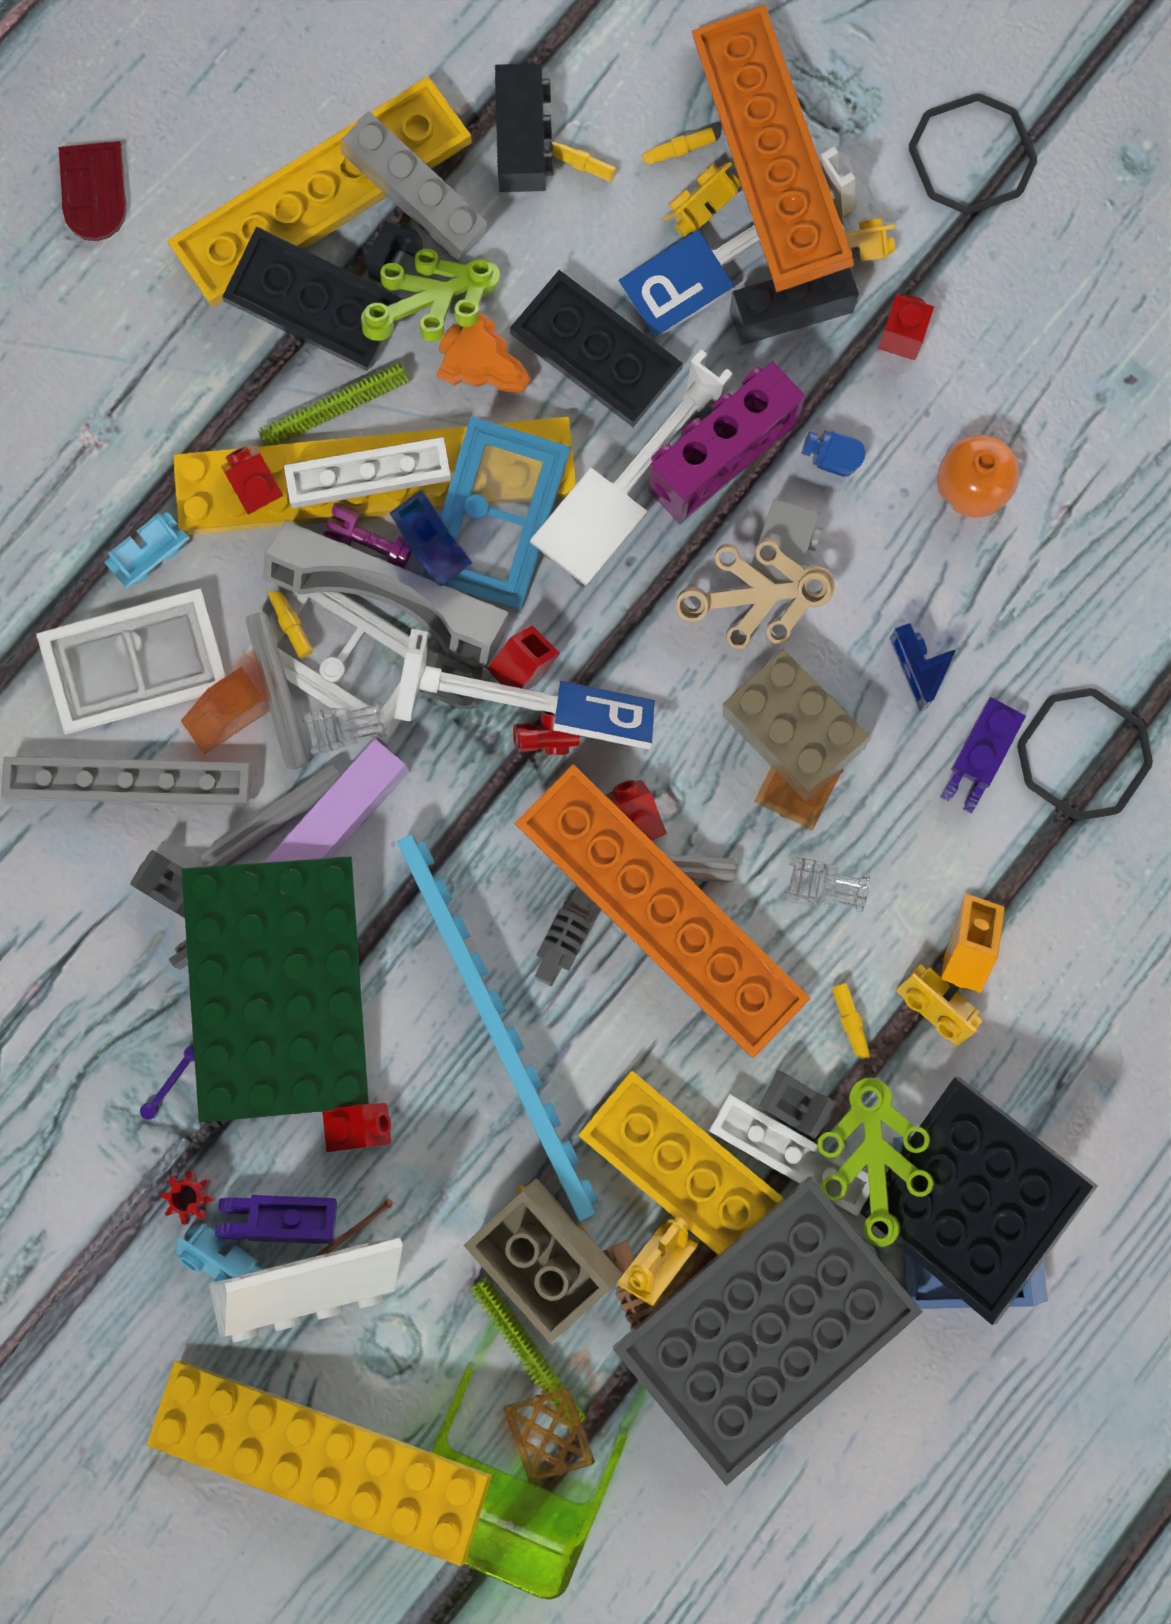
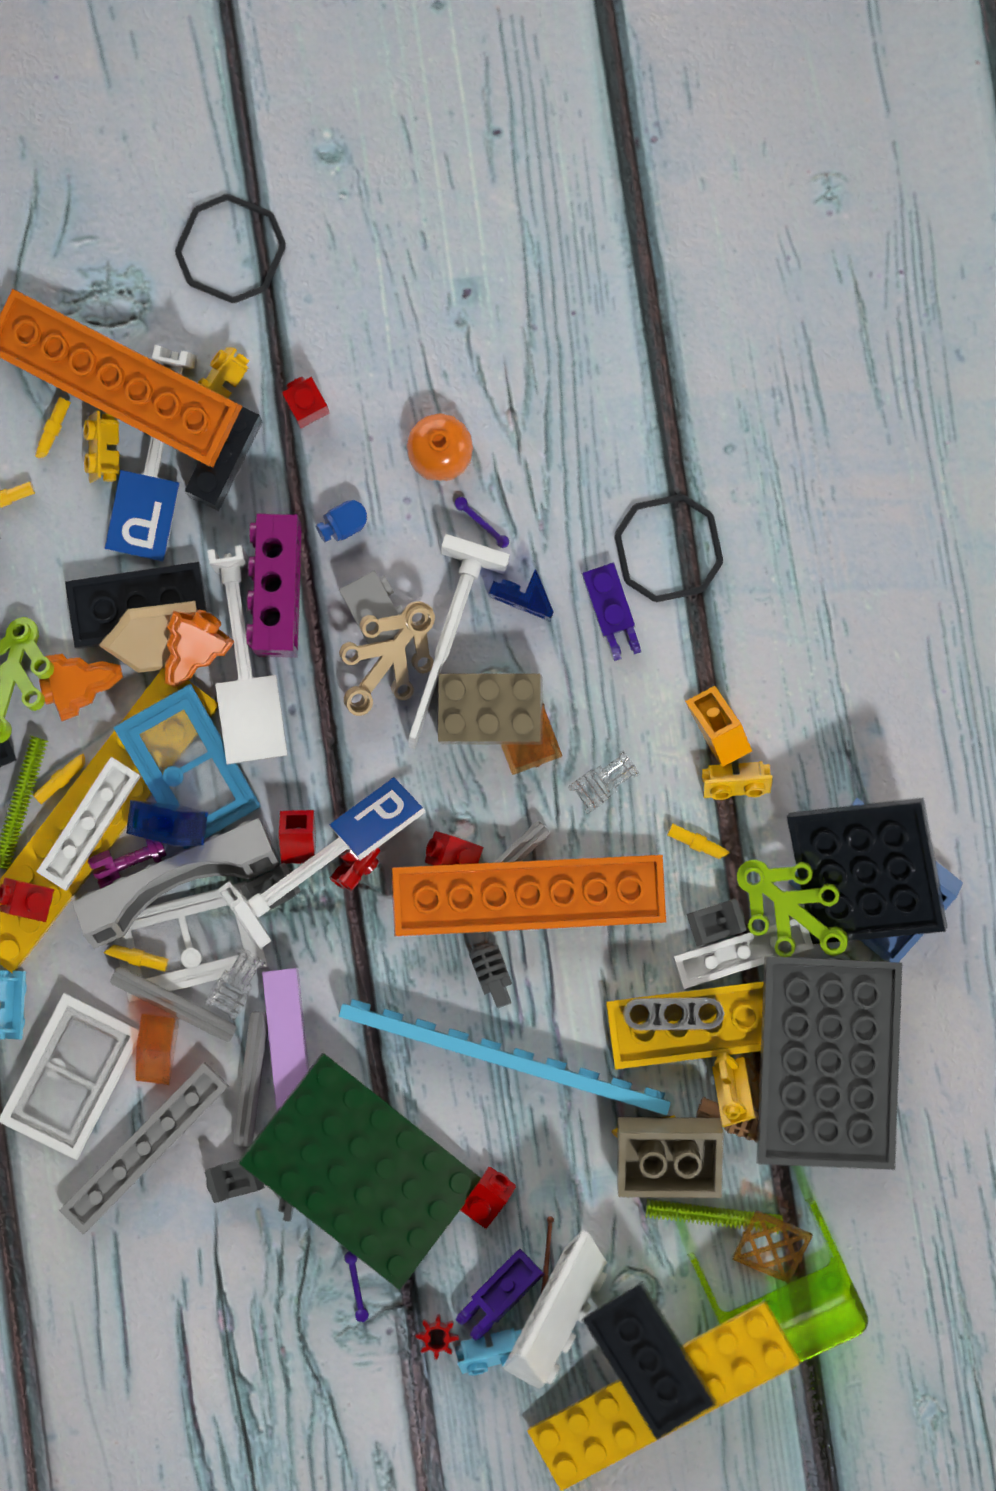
camera: 50 degrees left, 5 degrees up
(336, 1417) = (649, 1360): none -> black plate
(385, 420) = (59, 779): none -> yellow piece
(584, 387) = (143, 636): none -> tan tile
(607, 417) = (193, 644): none -> orange rock
(696, 1151) = (689, 1020): none -> light grey beam
(911, 590) = (473, 558): none -> white piece
(946, 541) = (462, 505): none -> dark purple hinge

